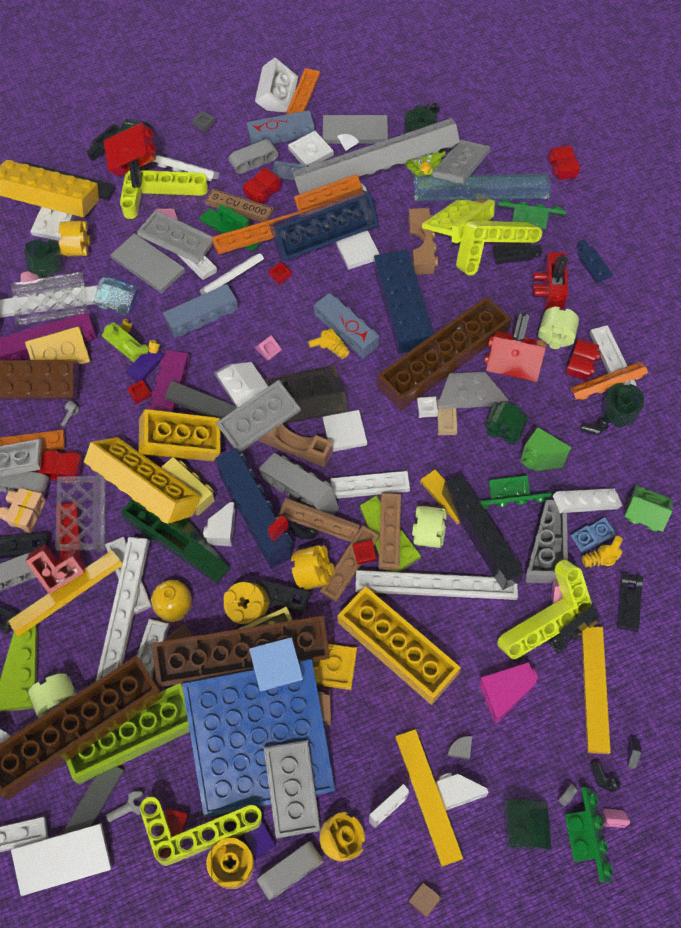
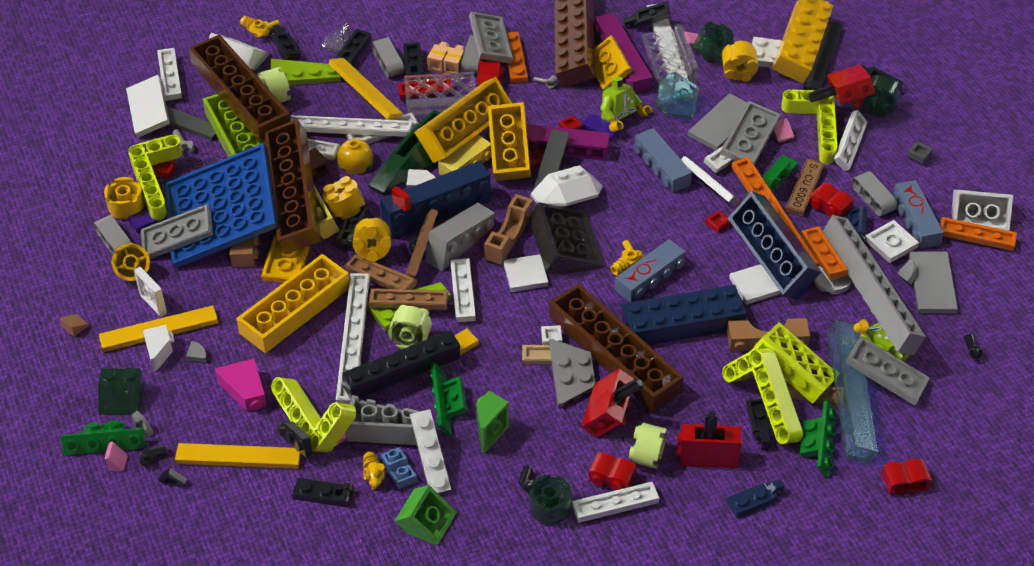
camera: 90 degrees right, 15 degrees down
(54, 572) = (384, 74): red brick -> none
(258, 416) = (527, 192): light grey tile -> none
(268, 348) = (623, 214): bright pink slope -> none
(275, 664) = (271, 197): light blue tile -> none
(364, 552) = (386, 278): red tile -> none
(418, 118) = (942, 335): clear green brick -> none
(506, 422) = (526, 392): dark green brick -> none
(606, 381) = (579, 486): orange plate -> none

